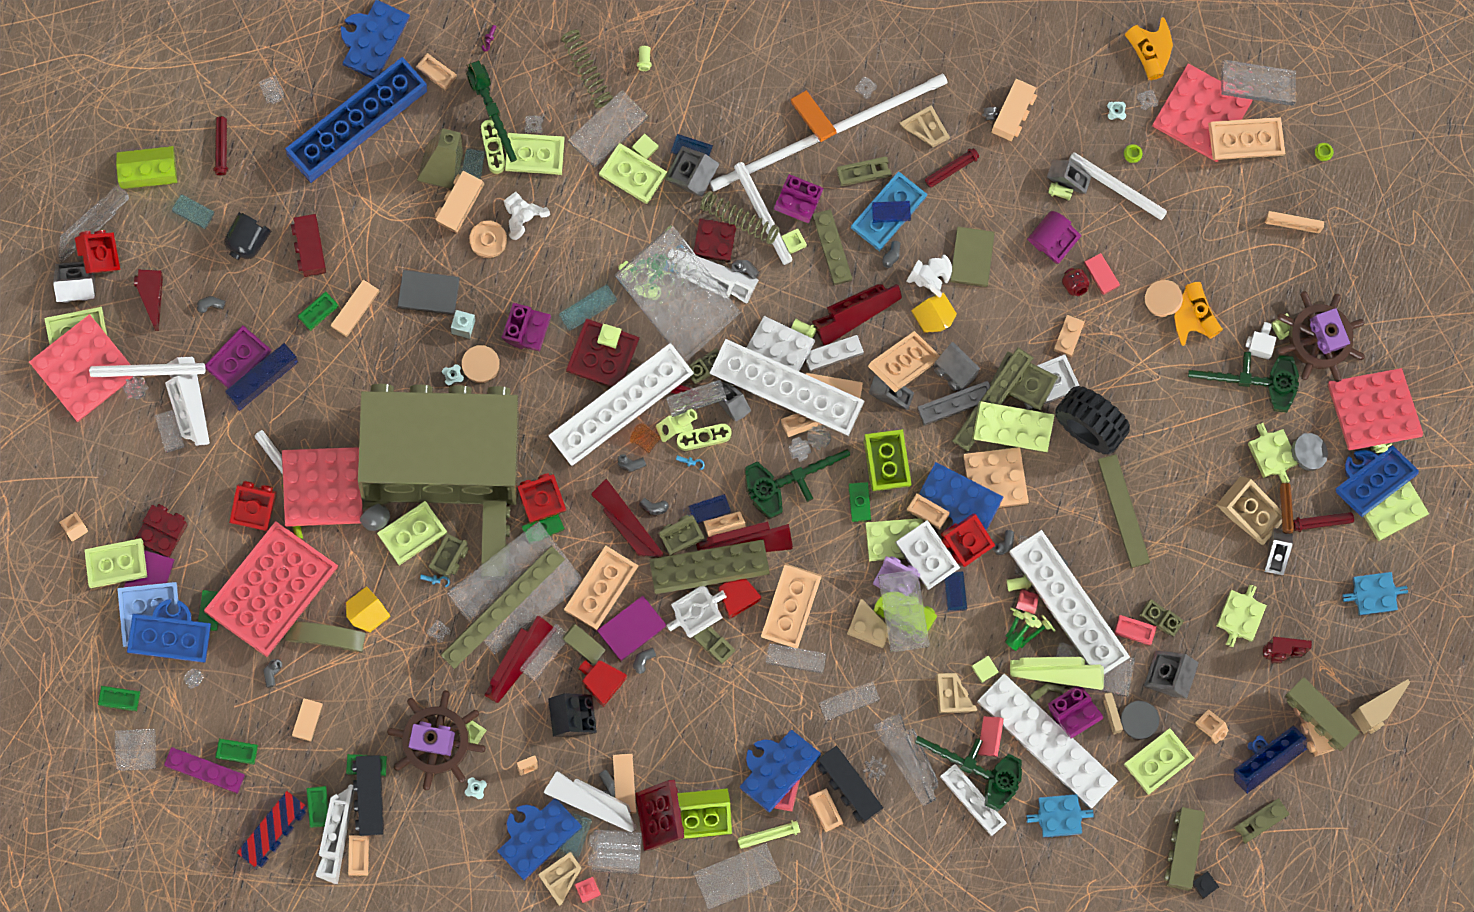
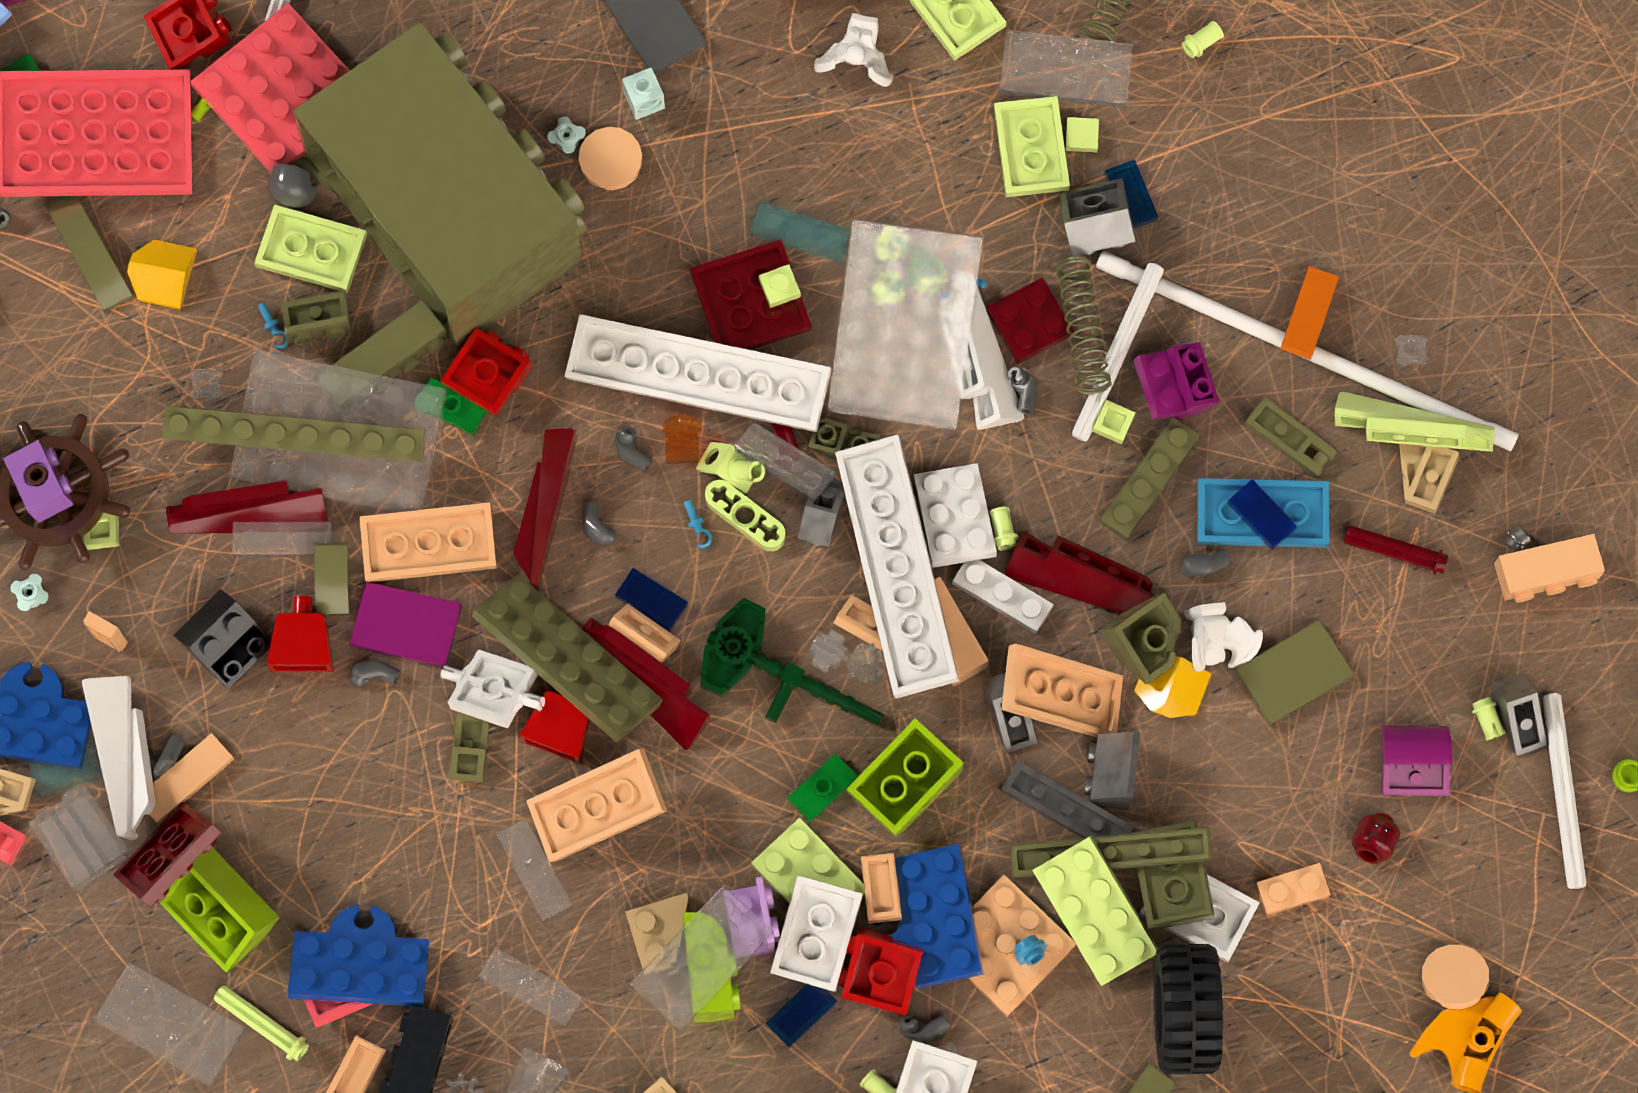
camera: 60 degrees right, 0 degrees up
(488, 239) = (788, 38): light nougat tile -> none
(526, 327) = (704, 173): magenta brick -> none
(681, 535) = (583, 588): olive bracket -> none
(899, 117) = (1409, 425): none -> yellowish green wedge
(905, 307) = (1145, 637): none -> olive slope
(1009, 468) = (1030, 950): none -> dark azure plate
(1102, 274) = (1419, 866): coral tile -> none

